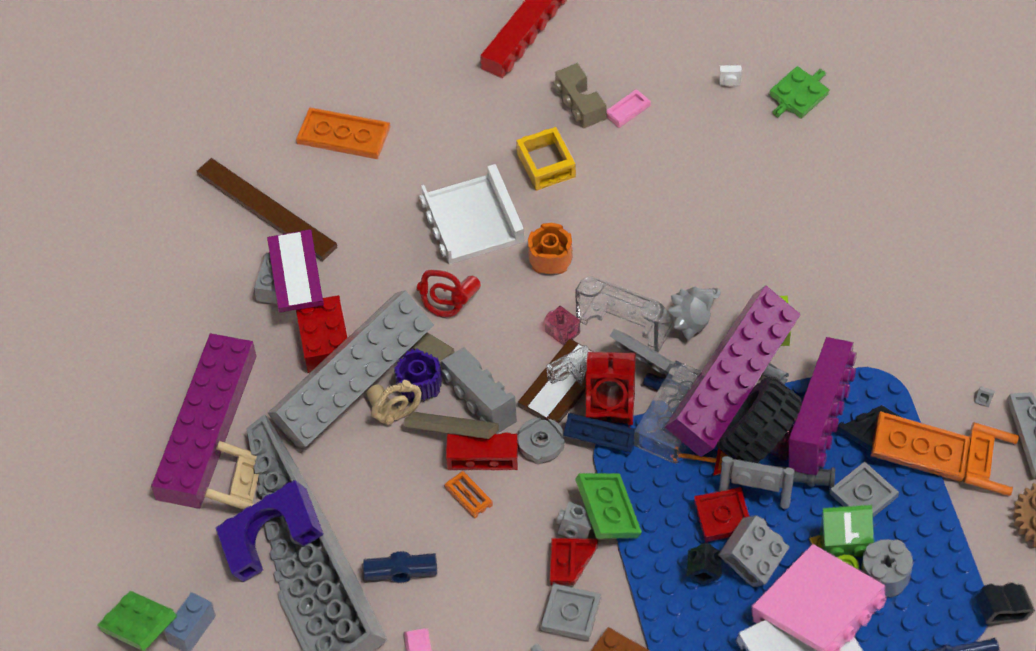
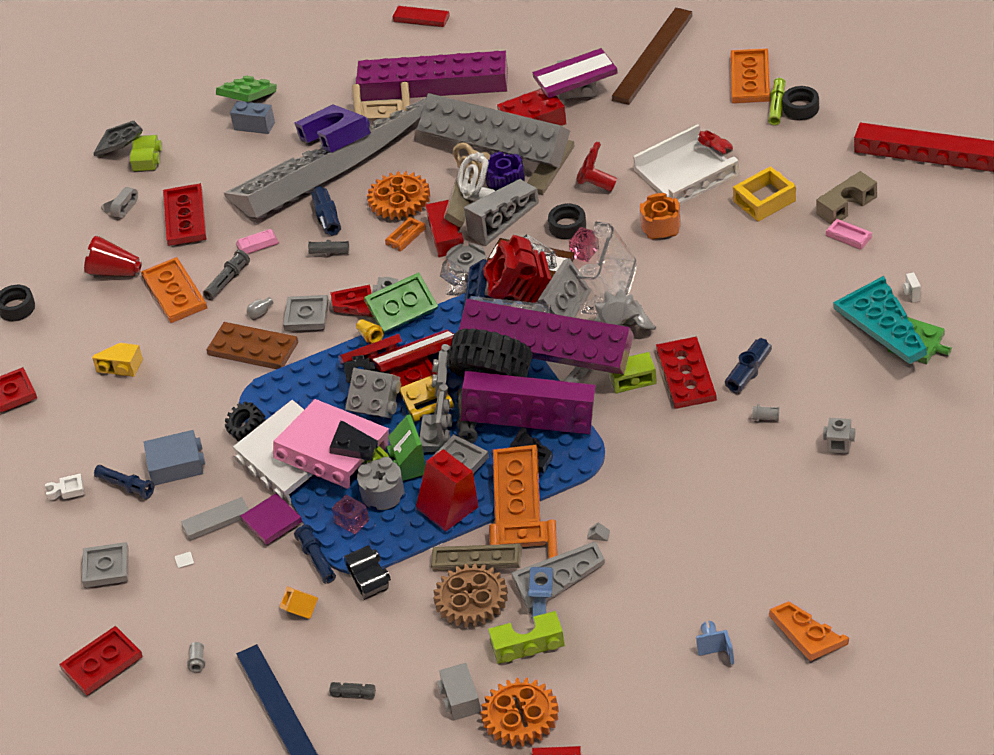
camera: 80 degrees right, 10 degrees down
(73, 417) = (421, 16): none -> red tile
(394, 116) = (777, 101): none -> lime pin
(405, 488) = (398, 195): none -> orange gear
(411, 87) = (804, 111): none -> black tyre
(445, 404) = (472, 191): none -> white piece
(447, 180) = (711, 139): none -> red plate
(465, 573) = (328, 247): none -> dark grey pin
(511, 321) = (564, 211): none -> black tyre
(576, 454) = (455, 276): none -> clear slope
(635, 547) = (369, 331): none -> yellow cone
(667, 550) = (371, 349): none -> red plate
(689, 504) = (412, 351): none -> red tile
(755, 503) = (419, 393): none -> yellow plate
(767, 106) = (883, 318): none -> teal wing
(792, 269) = (677, 381): none -> red plate
(795, 224) = (748, 365): none -> dark blue piece
(810, 496) = (435, 427): none -> light grey bracket
(839, 575) = (353, 443): none -> black wing
(862, 230) = (765, 413): none -> light grey pin
(917, 173) = (839, 430): none -> light grey brick
(923, 503) = (446, 490): none -> red slope
(923, 596) = (350, 514): none -> clear pink brick
(1002, 502) = (490, 555): none -> dark tan tile

